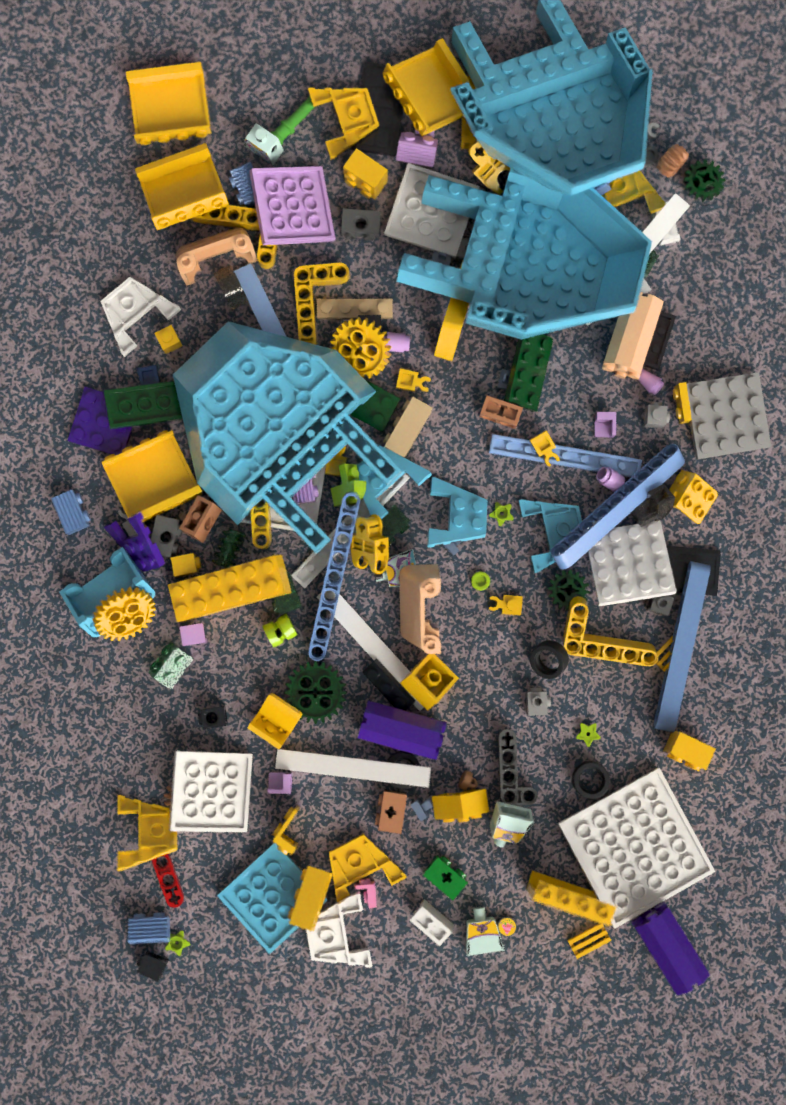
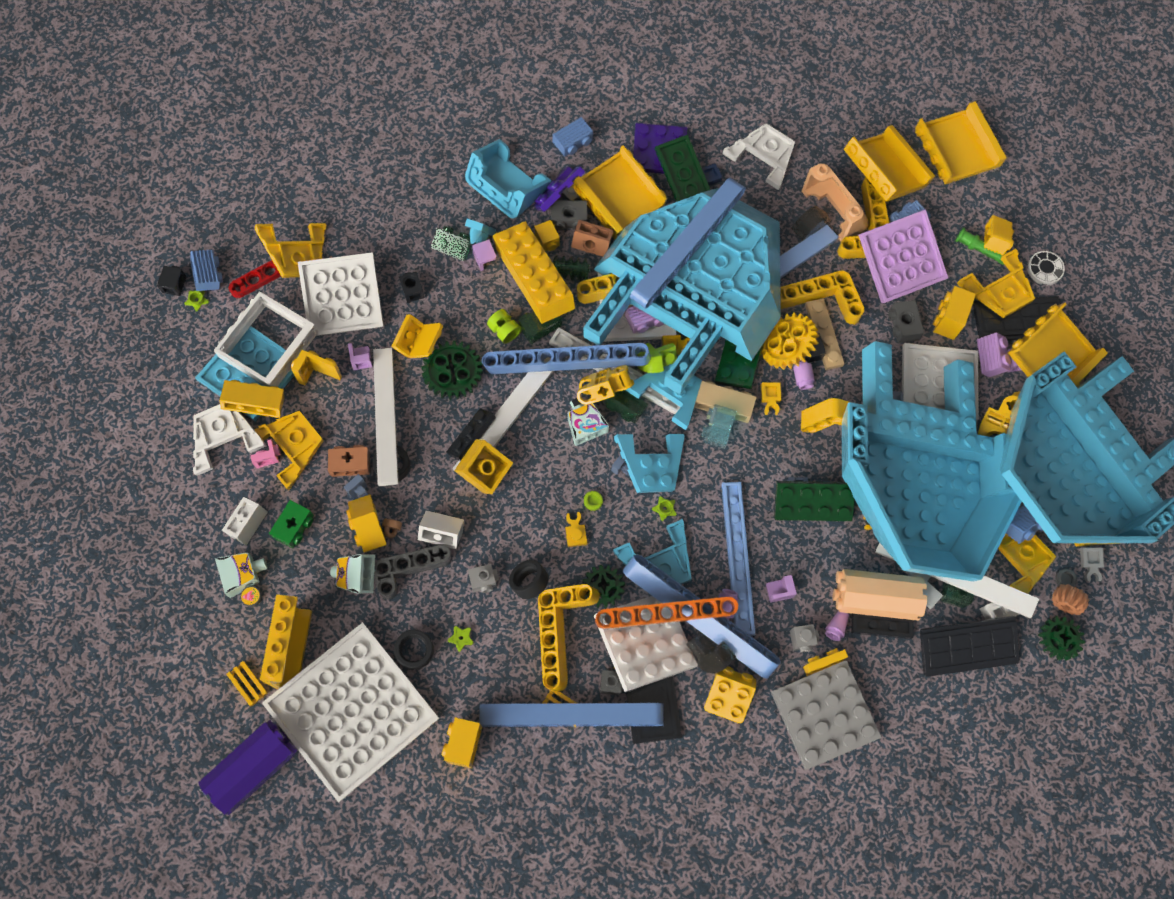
camera: 80 degrees right, 15 degrees down
(124, 613) = (490, 189): yellow gear -> none
(167, 635) = (479, 231): none -> medium azure tile
(168, 339) = (750, 180): yellow brick -> none
(230, 905) = (243, 323): none -> white window
(251, 425) = (687, 243): none -> medium blue beam
(261, 143) = (952, 218): light aqua torso -> none
(288, 100) = (998, 235): none -> yellow brick
(330, 63) = (1045, 268): none -> tile
(402, 730) = (430, 450): dark purple brick -> none
(415, 585) = (528, 449): light nougat windscreen -> none
(435, 441) = (719, 426): none -> clear light blue brick
(482, 733) = (440, 529): none -> white brick
(501, 412) = (764, 482): nougat brick -> none
(543, 446) = (742, 529): yellow plate -> none
(610, 546) = (676, 612): none -> orange beam
(694, 266) = (969, 646): none -> black piece

